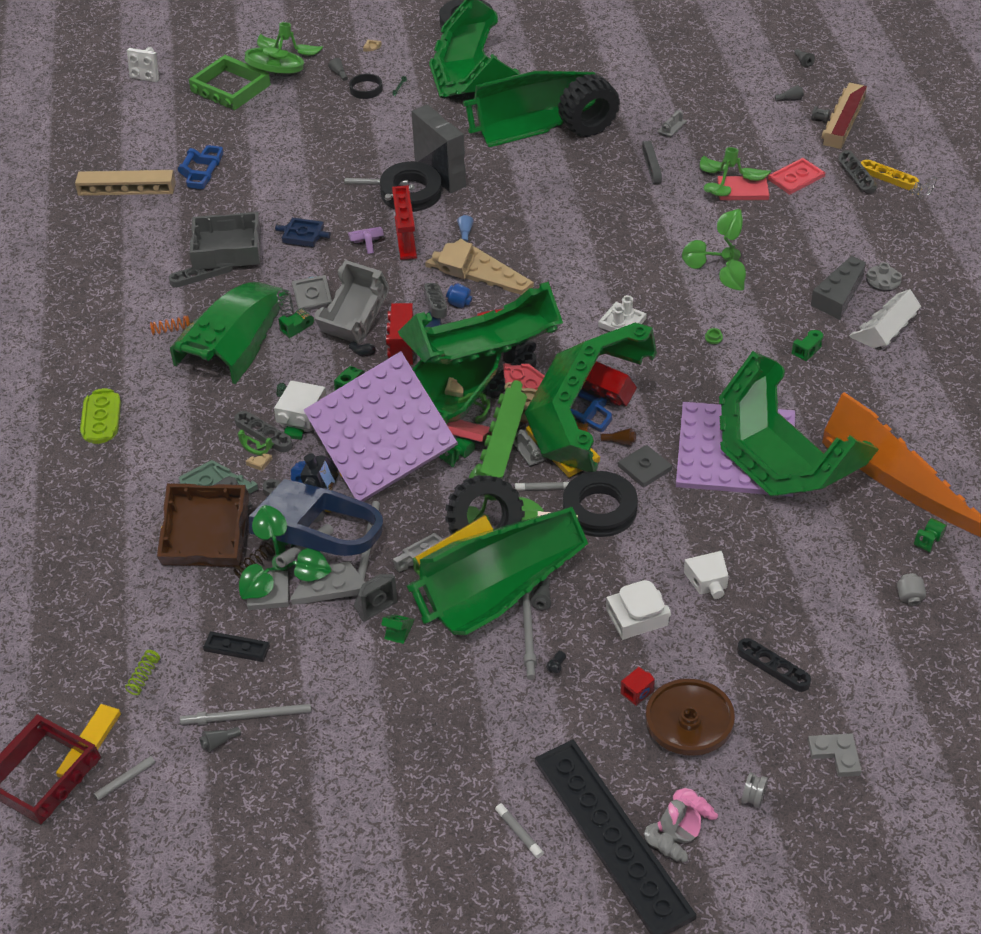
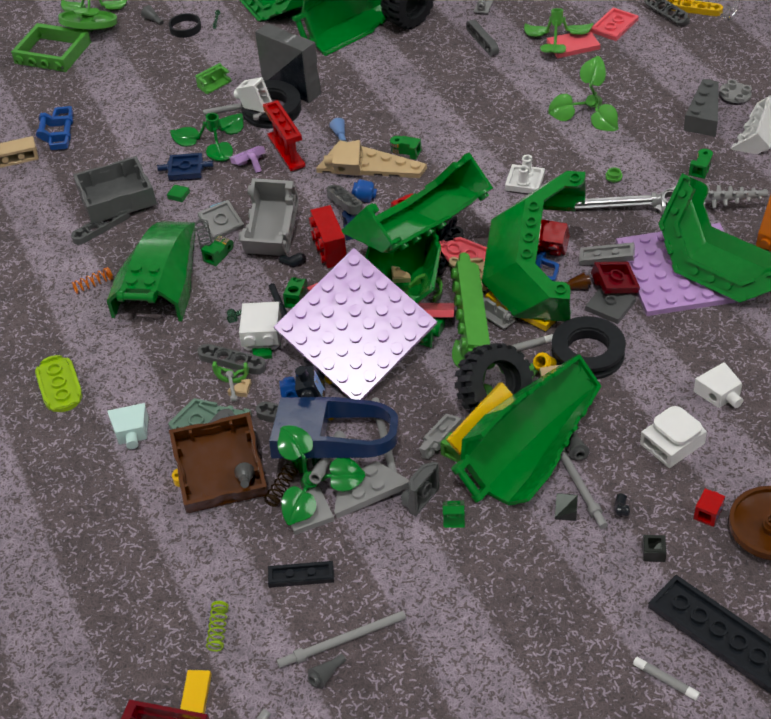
camera: 15 degrees left, 0 degrees up
(145, 470) = (130, 424): none -> light aqua torso
(222, 542) = (244, 473): none -> dark grey cone
(253, 445) = (229, 374): none -> light grey hinge
(285, 257) = (178, 193): none -> green tile
(331, 377) = (275, 294): none -> black bar
(341, 224) = (219, 151): none -> green plant
(367, 148) = (213, 78): none -> bright green hinge
(391, 173) = (253, 94): none -> white torso
(504, 650) = (566, 507): none -> pearl dark grey slope
(522, 259) = (406, 145): none -> green leg
(548, 505) = (543, 360): none -> yellow cone
(566, 709) = (654, 548): none -> pearl dark grey slope
(658, 440) = (615, 277): none -> dark red plate
(663, 415) = (607, 253): none -> light grey plate
(728, 369) = (659, 202): none -> light grey piece

